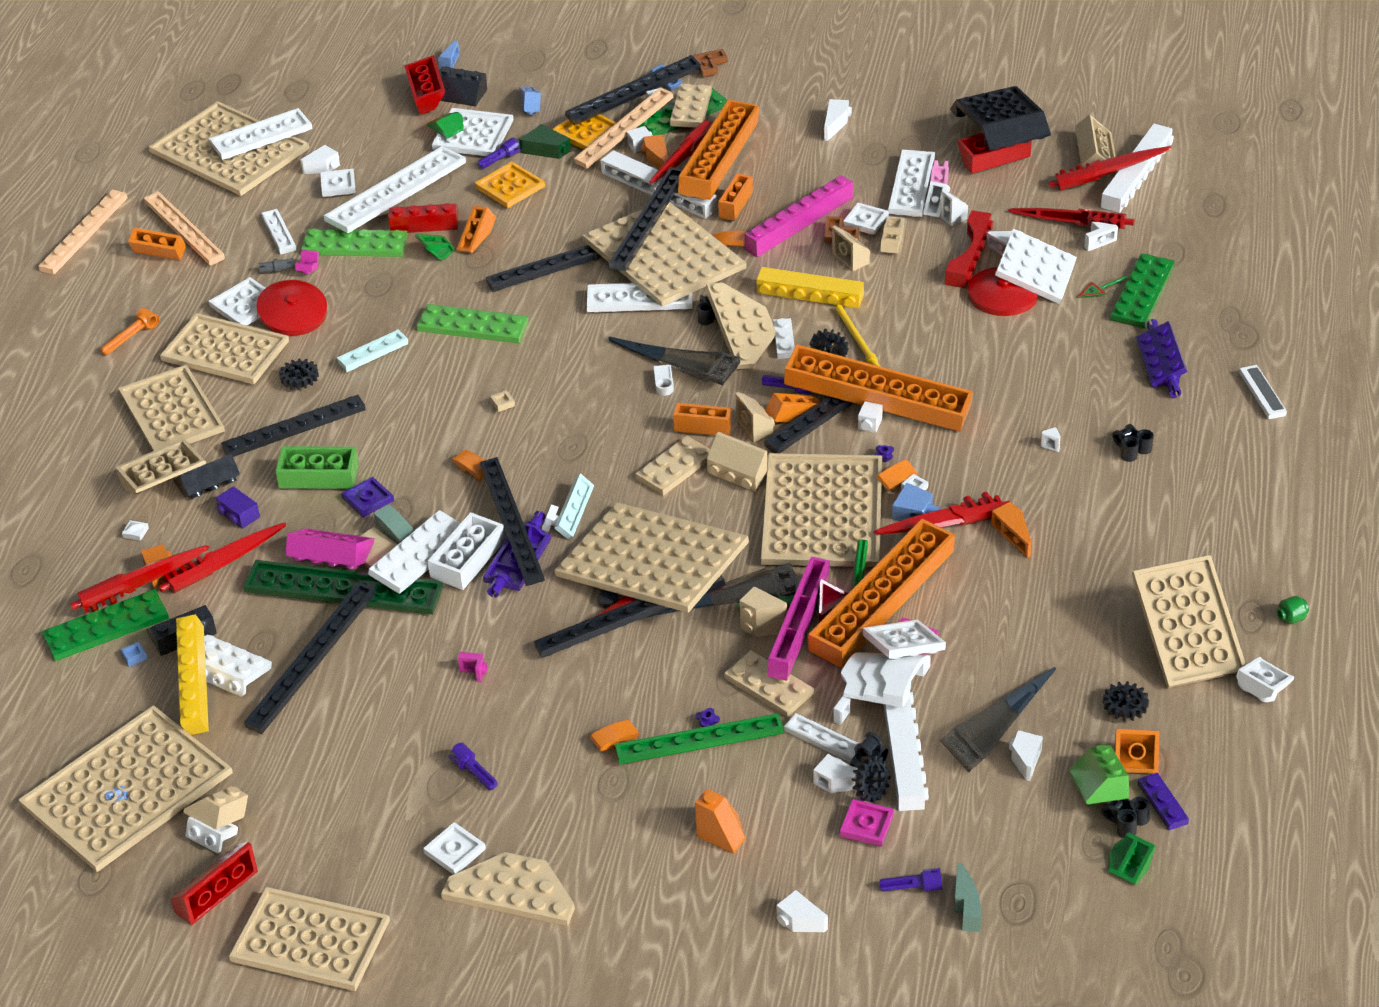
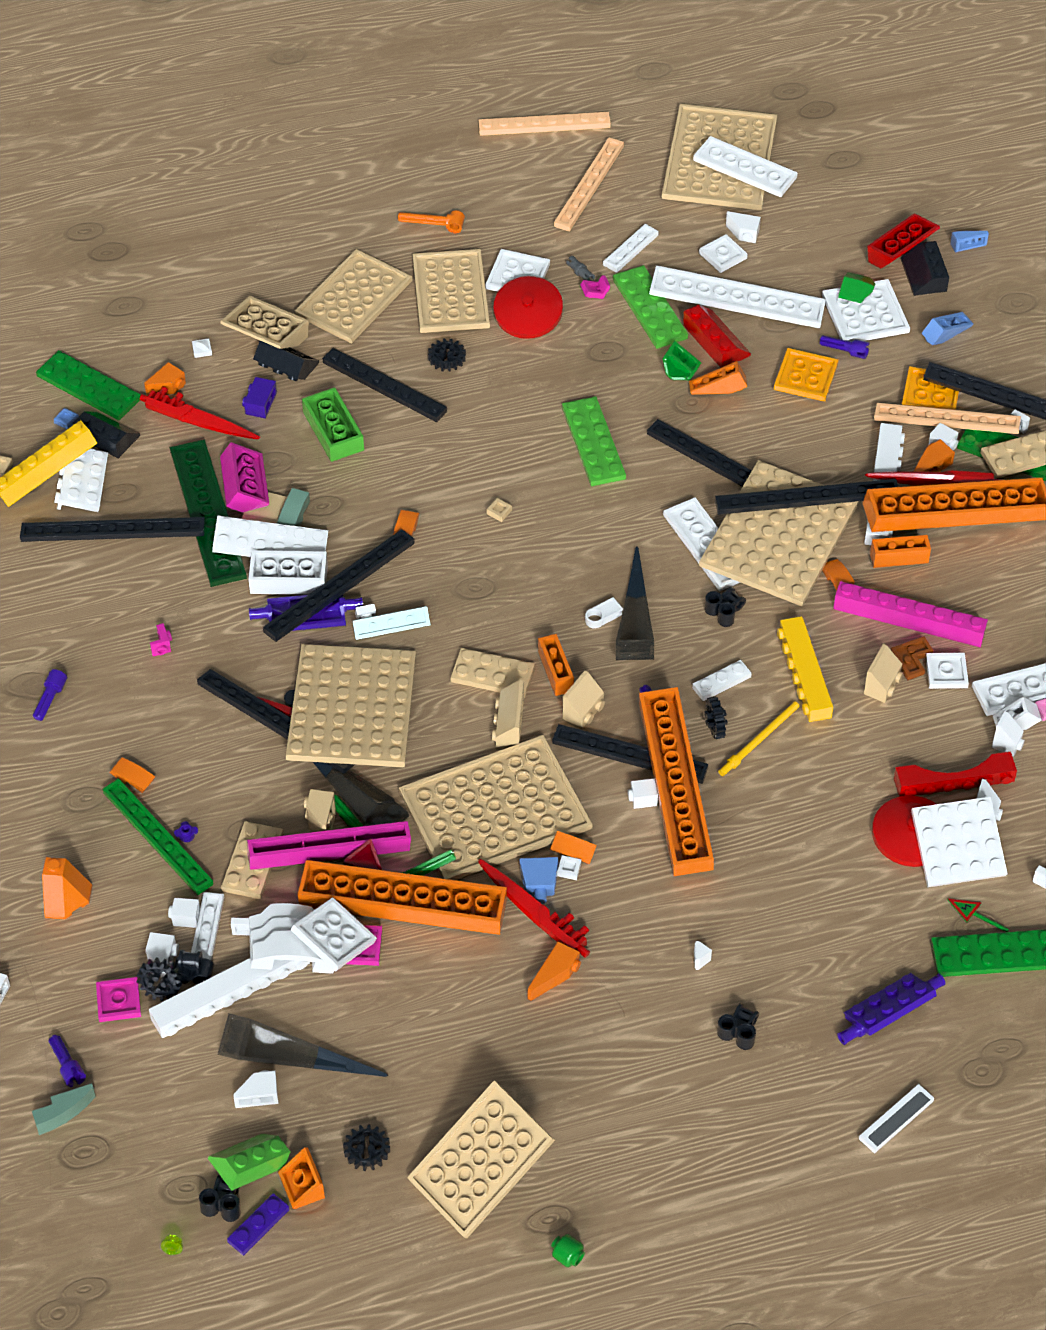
camera: 60 degrees right, 10 degrees up
(130, 581) = (126, 373): red piece -> none
(157, 244) = (549, 177): orange brick -> none
(367, 497) = (326, 476): dark purple tile -> none
(372, 350) = (510, 389): light aqua plate -> none
(545, 143) = (885, 370): dark green slope -> none
(742, 322) = (710, 638): tan plate -> none
(789, 406) = (619, 725): orange slope -> none
(801, 744) = (184, 912): none -> white brick
(884, 451) = (603, 830): dark purple plate -> none
(892, 234) = (936, 702): tan slope -> none
(1131, 858) = (167, 1221): green slope -> none
(1157, 864) = (172, 1245): none -> clear neon green plate
(1262, 679) = (455, 1255): white slope -> none

